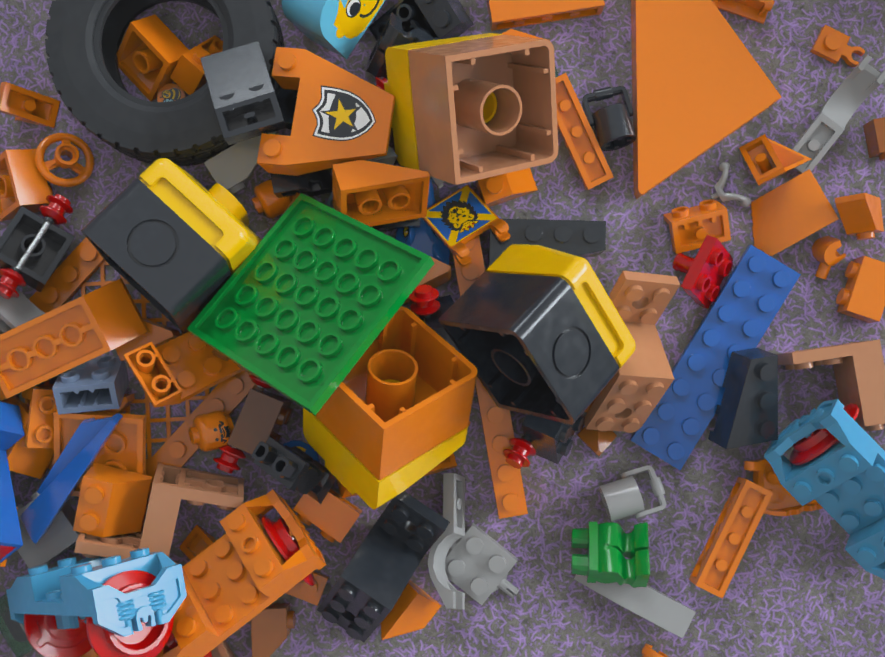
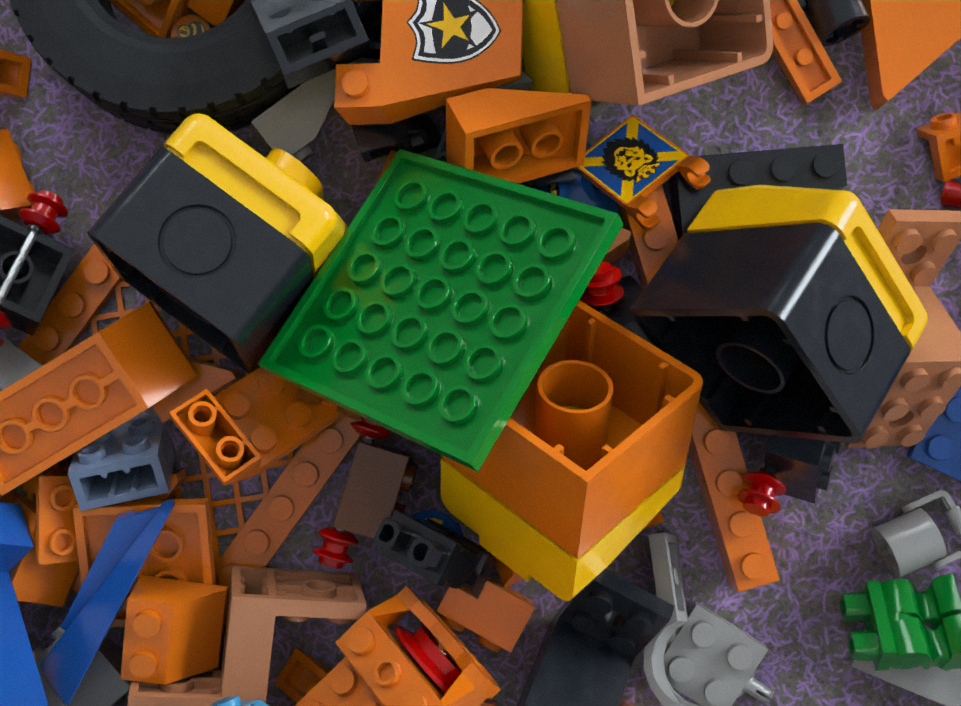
camera: 10 degrees left, 0 degrees up
(69, 150) = (50, 123): orange piece -> none
(211, 430) = (305, 510): orange head -> none
(268, 202) = (348, 168): orange head -> none
(506, 187) = (687, 110): orange slope -> none
(596, 439) = (860, 462): dark orange slope -> none

